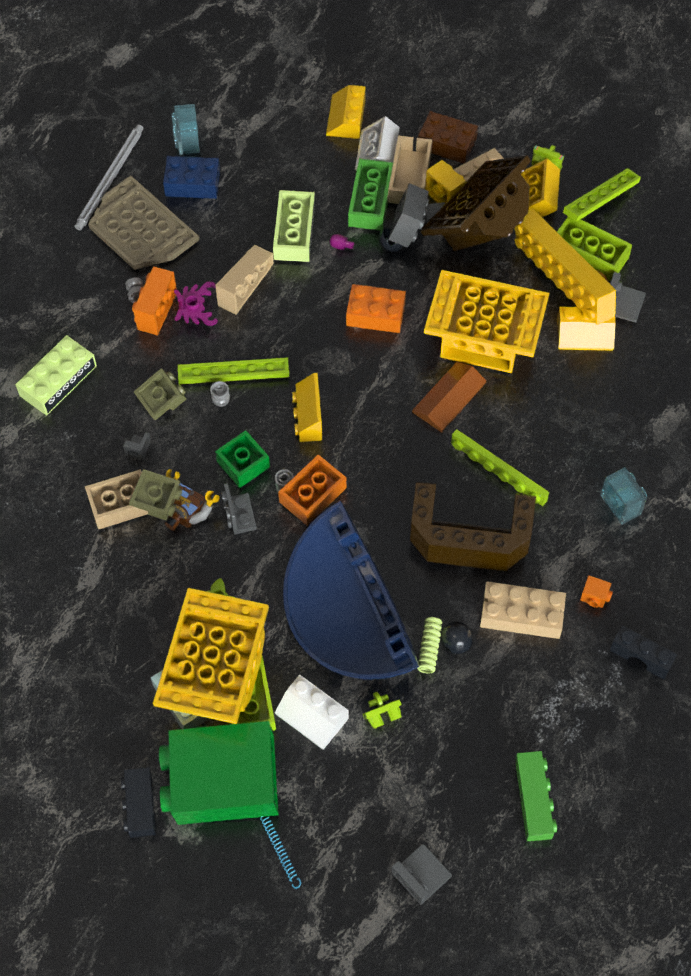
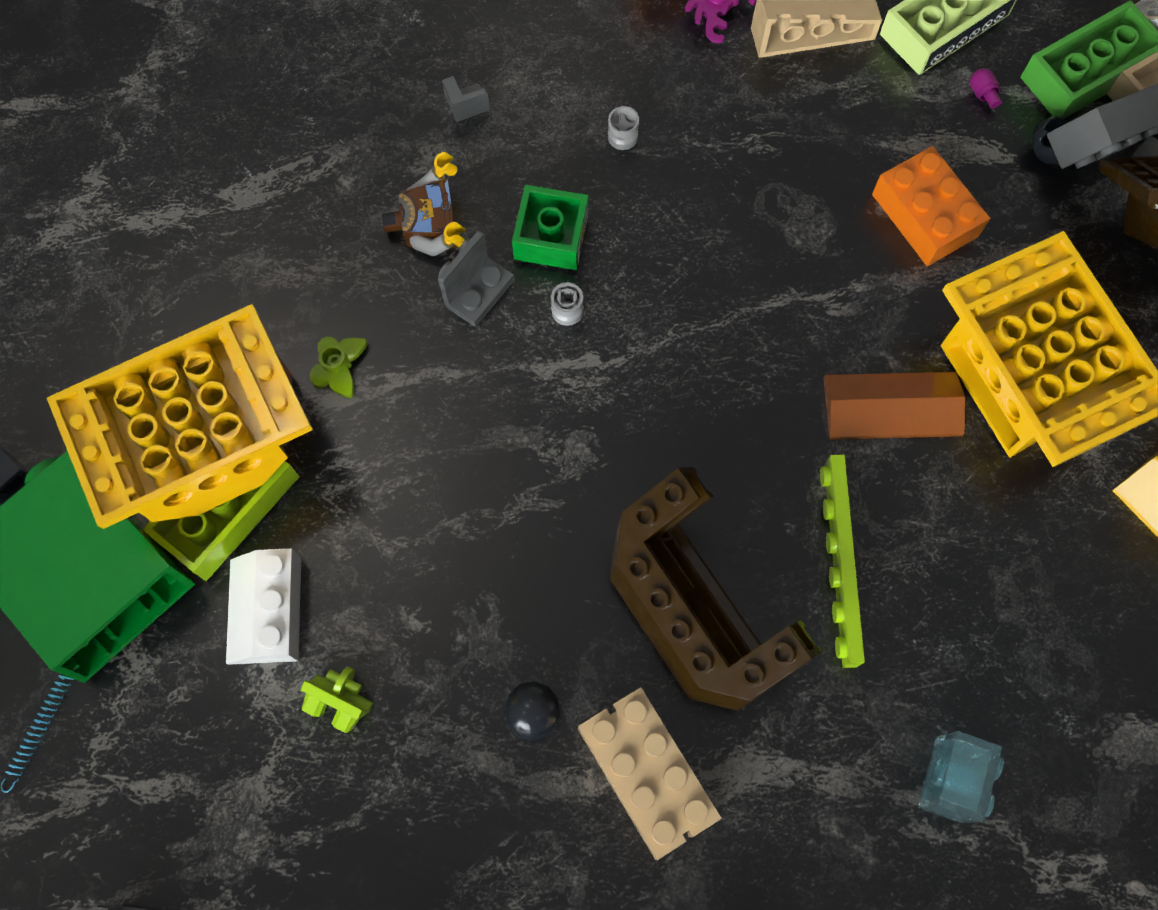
camera: 50 degrees right, 10 degrees up
(111, 499) = (367, 136): tan brick -> none
(156, 494) = (396, 167): olive plate -> none
(160, 393) = (559, 63): olive plate -> none
(233, 370) = (673, 118): lime plate -> none
(308, 409) = (697, 247): yellow slope -> none
(312, 490) = (582, 346): orange brick -> none
(342, 604) = (446, 528): dark blue brick -> none
(429, 645) = (486, 684): yellowish green piece -> none
(596, 592) = (769, 860): orange brick -> none

